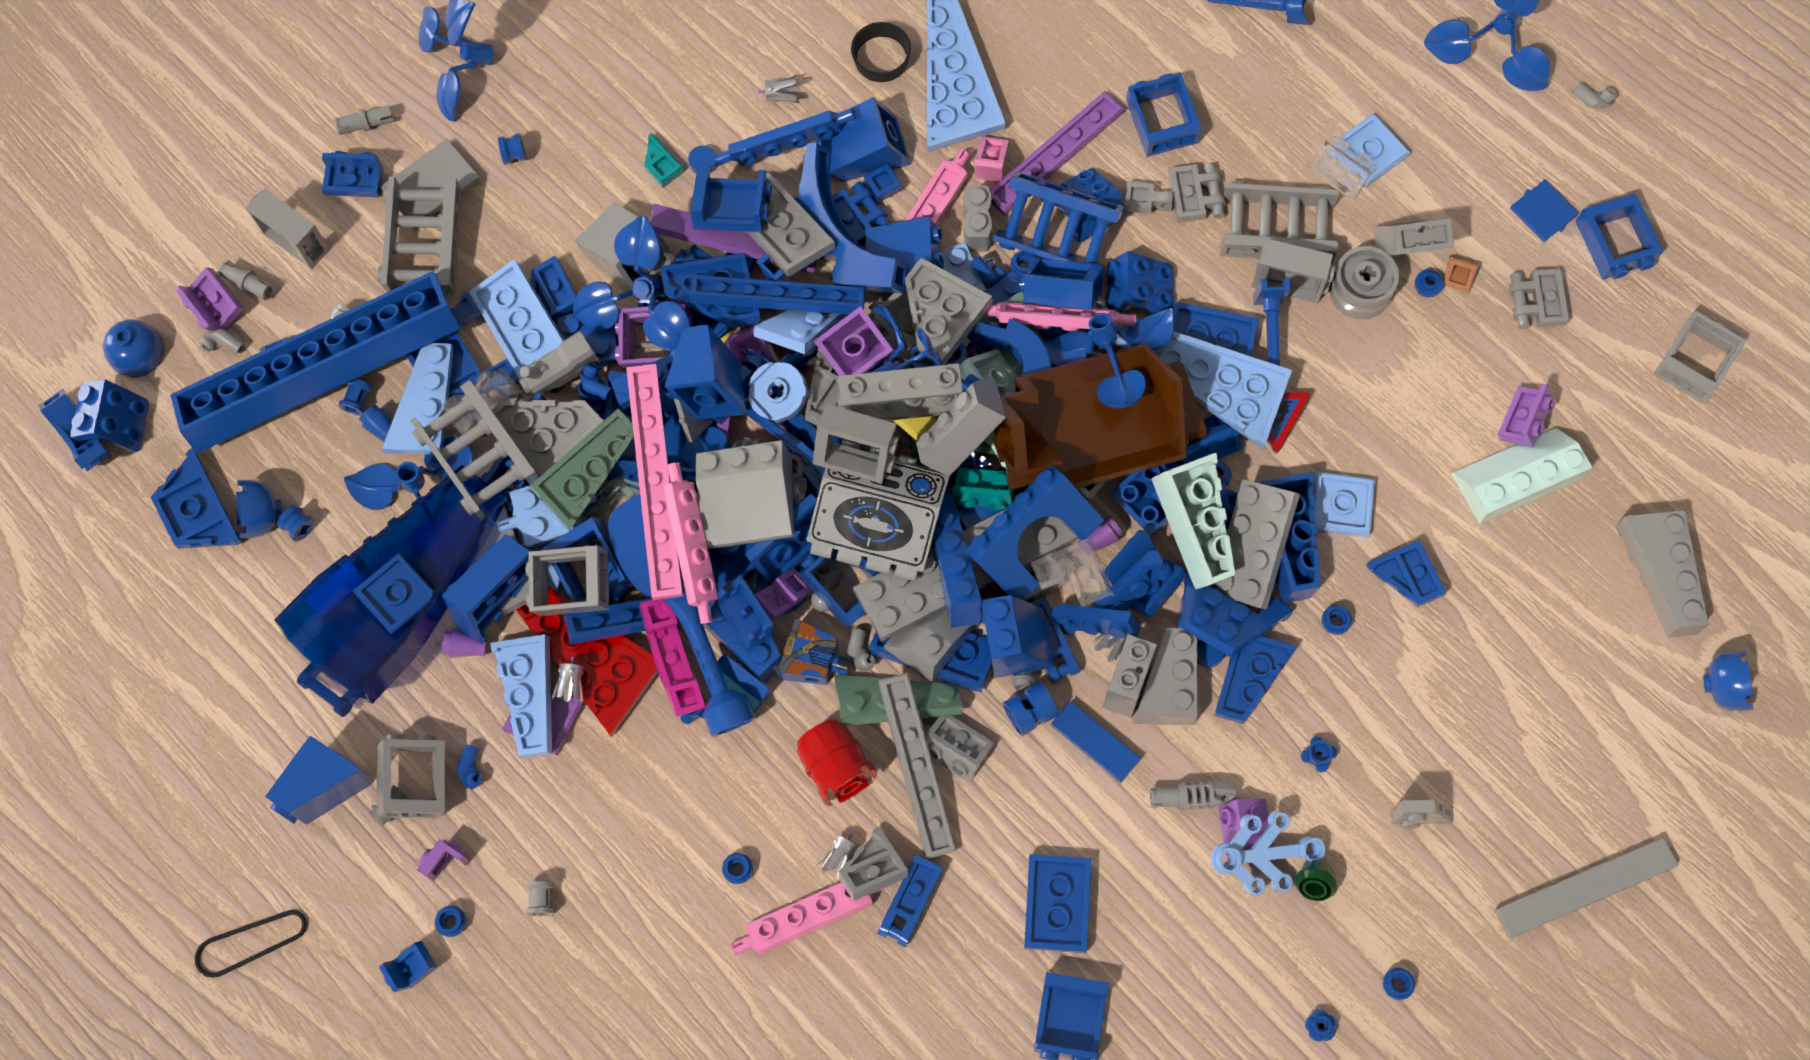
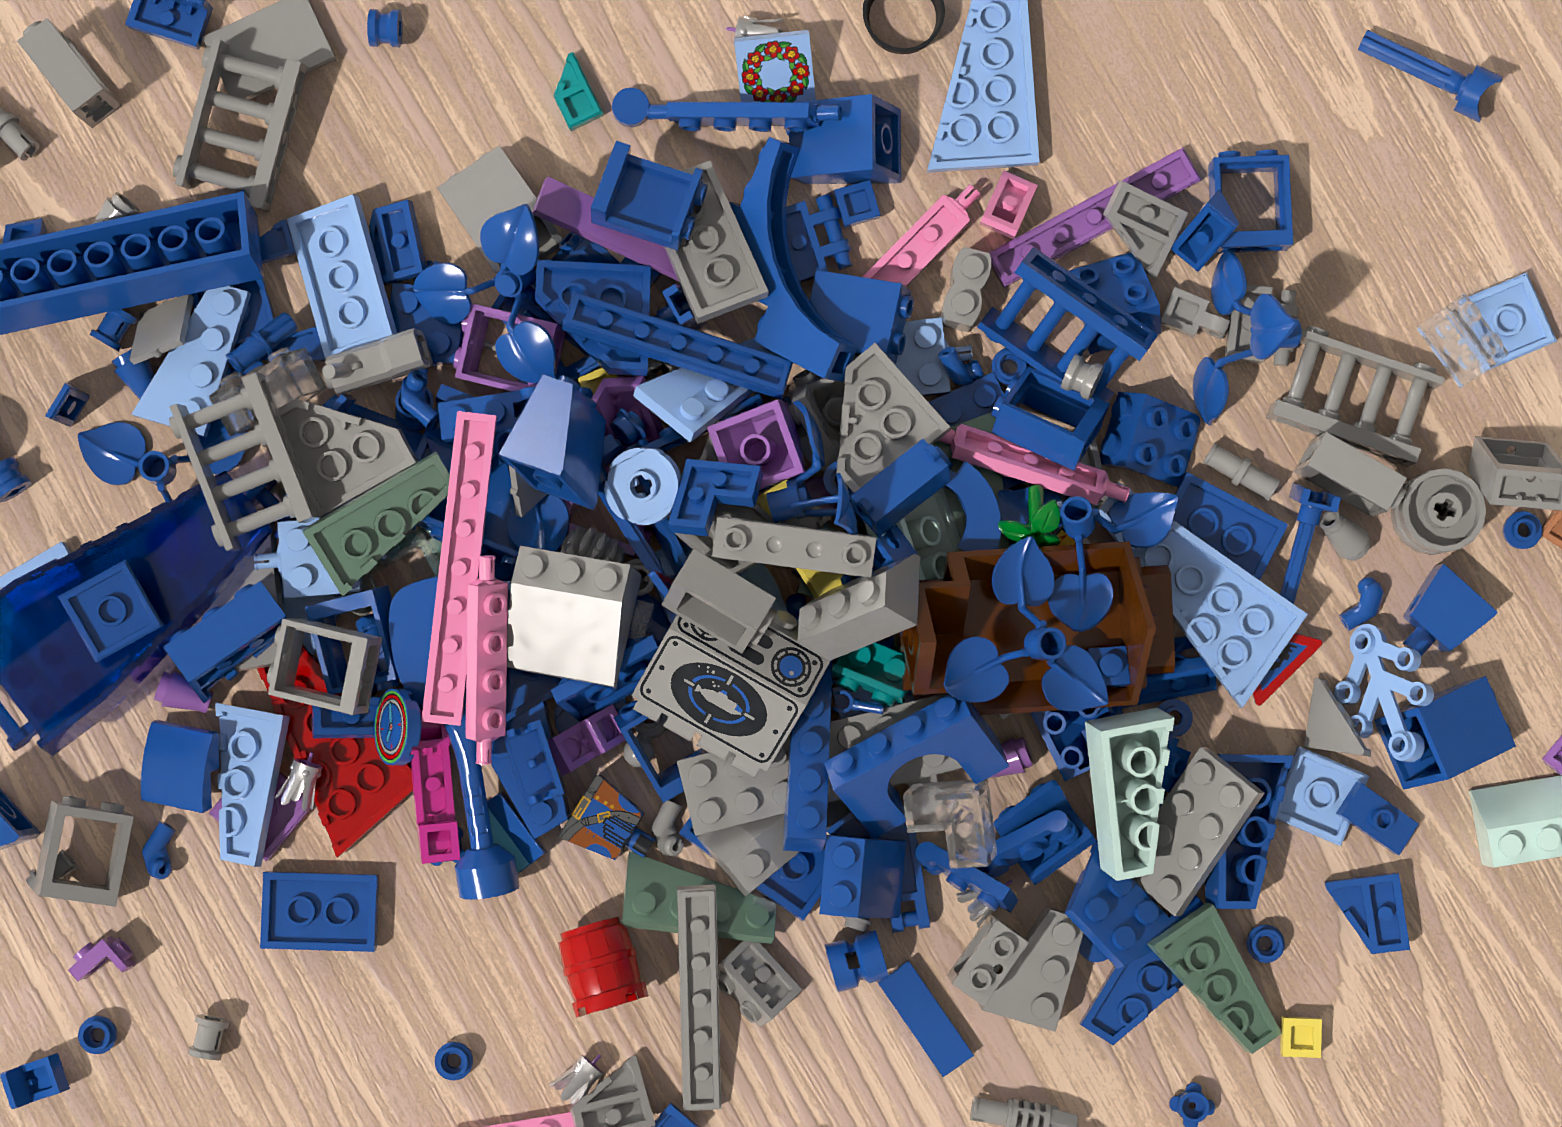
camera: 15 degrees right, 15 degrees up
(331, 456) = (67, 405): none -> blue slope
(392, 385) = (161, 328): none -> light grey piece
(471, 372) = (261, 342): none -> blue axle
(472, 695) = (179, 766): none -> blue slope
(605, 780) = (319, 911): none -> blue plate
(633, 611) = (397, 727): none -> tile
(797, 100) = (775, 67): none -> tile
(822, 378) = (704, 486): none -> blue plate
(970, 338) = (901, 487): none -> blue brick
(976, 515) = (857, 704): none -> blue hand
(1060, 448) = (975, 668): none -> blue plant
(1076, 341) = (1041, 520): none -> green plant
(1078, 249) = (1082, 377): none -> light grey wheel
(1092, 144) = (1144, 224): none -> light grey wing
(1137, 136) = (1206, 232): none -> blue slope
(1156, 437) = (1112, 664): none -> blue plate
(1200, 168) = (1270, 330): none -> blue plant
(1213, 293) = (1241, 471): none -> light grey pin
(1303, 316) = (1345, 536): none -> light grey cone
(1304, 644) = (1213, 971): none -> sand green wing
(1334, 364) = (1368, 605): none -> blue arm
(1334, 449) = (1330, 725): none -> light grey tile
(1363, 411) = (1382, 689): none -> light blue plant
(1385, 680) = (1301, 1037): none -> light yellow plate
(1390, 507) = (1377, 818): none -> blue plate
(1392, 351) = (1445, 612): none -> blue torso
(1419, 433) = (1458, 733): none -> blue slope

